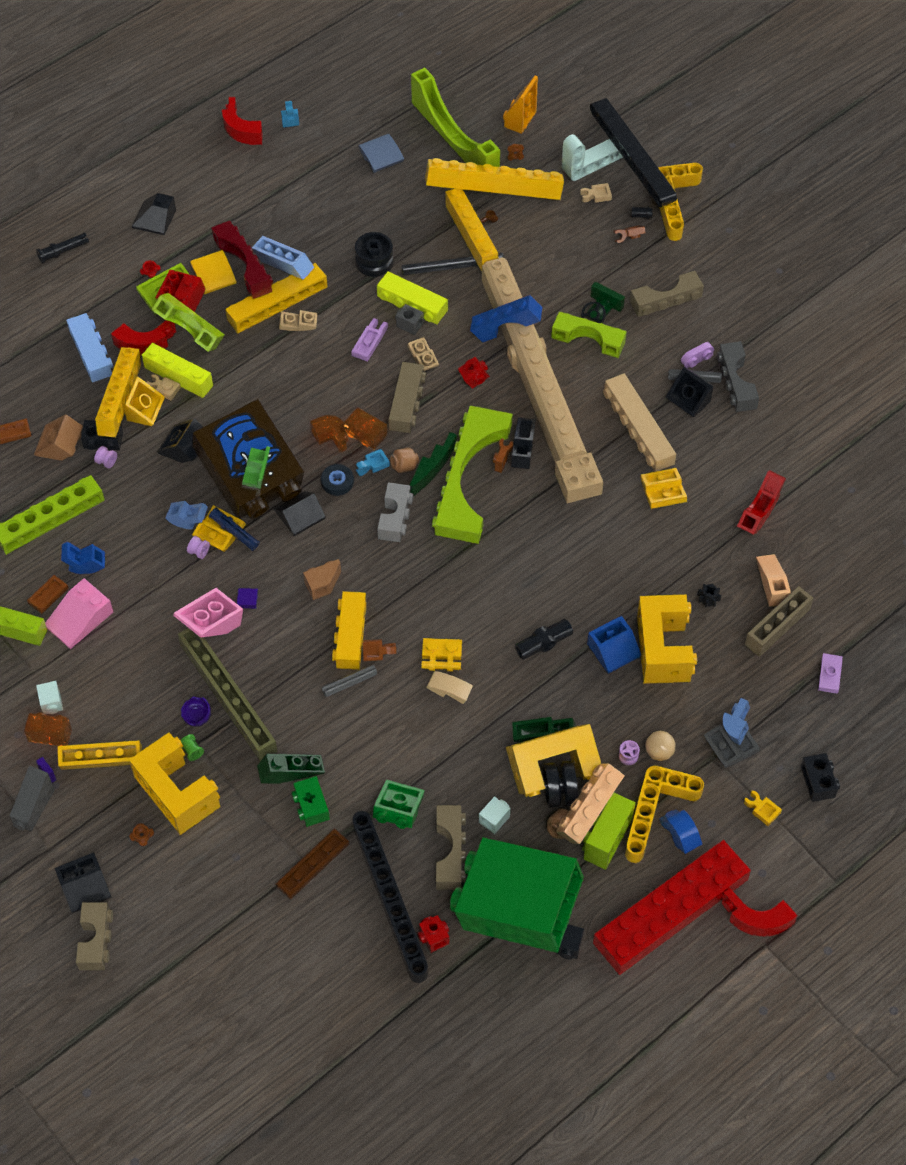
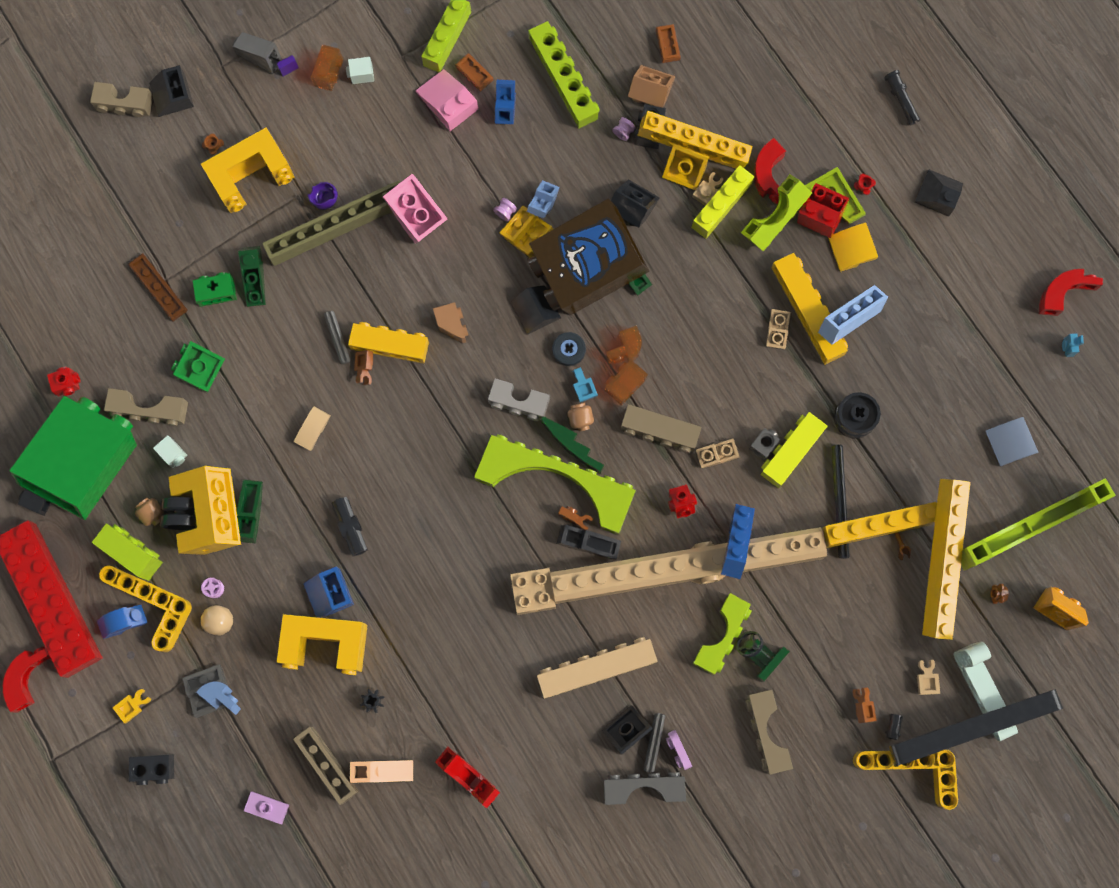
camera: 100 degrees right, 20 degrees up
(89, 347) = (764, 118): light blue brick -> none
(97, 754) = (290, 109): yellow brick -> none
(191, 747) = (289, 190): bright green bush -> none
(228, 524) = (524, 237): dark blue pin -> none
(229, 240) = (826, 283): dark red arch -> none
(247, 598) = (443, 252): dark purple tile -> none
(256, 467) = (564, 259): bright green panel -> none
(369, 340) = (742, 399): lavender hinge -> none
(392, 904) = (82, 350): black beam -> none
(441, 650) = (357, 427): yellow plate -> none
(589, 803) = (146, 534): light nougat brick -> none
(663, 488) = (512, 680): yellow slope -> none

